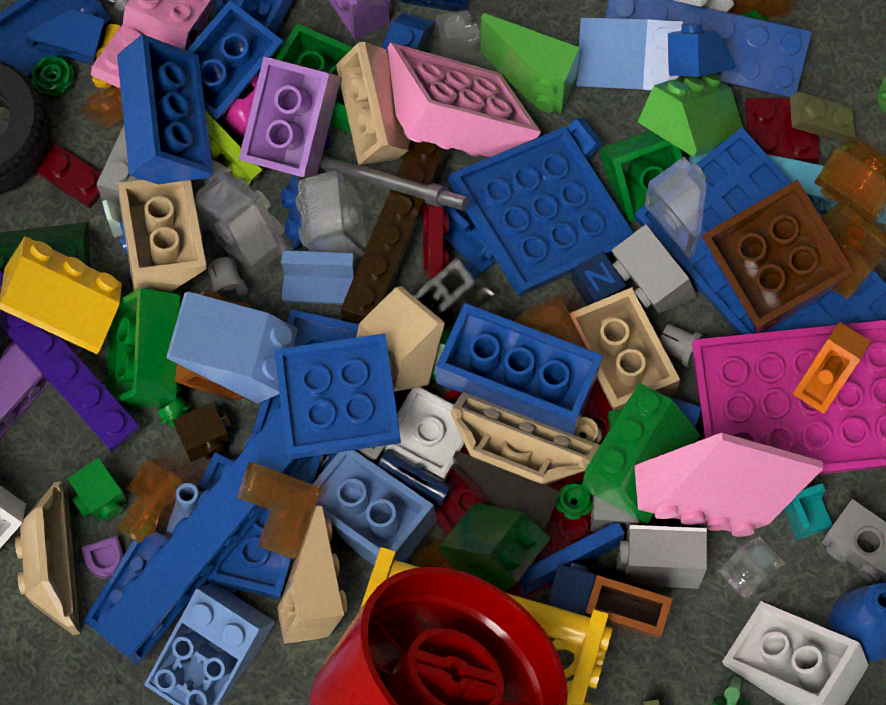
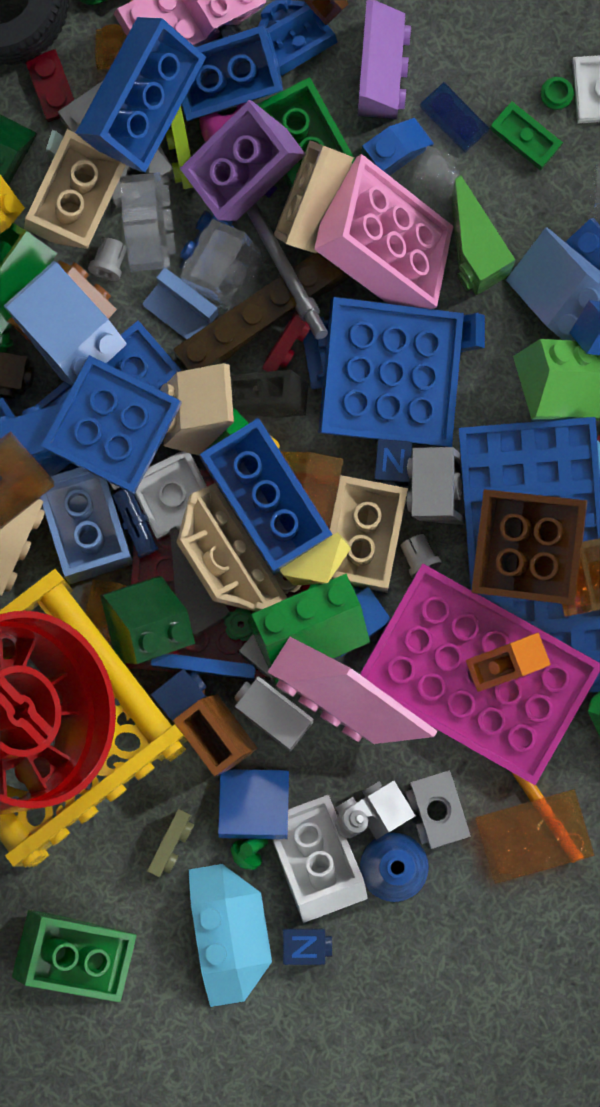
camera: 35 degrees right, 15 degrees up
(607, 394) = (318, 563): none -> light yellow slope
(633, 164) = (494, 393): green slope -> none
(678, 202) = (490, 451): clear slope -> none
(704, 653) = (254, 804): none -> blue tile
(751, 567) = (342, 766): clear brick -> none
(808, 513) = (414, 756): teal panel -> none
(818, 581) = (380, 810): none -> brick

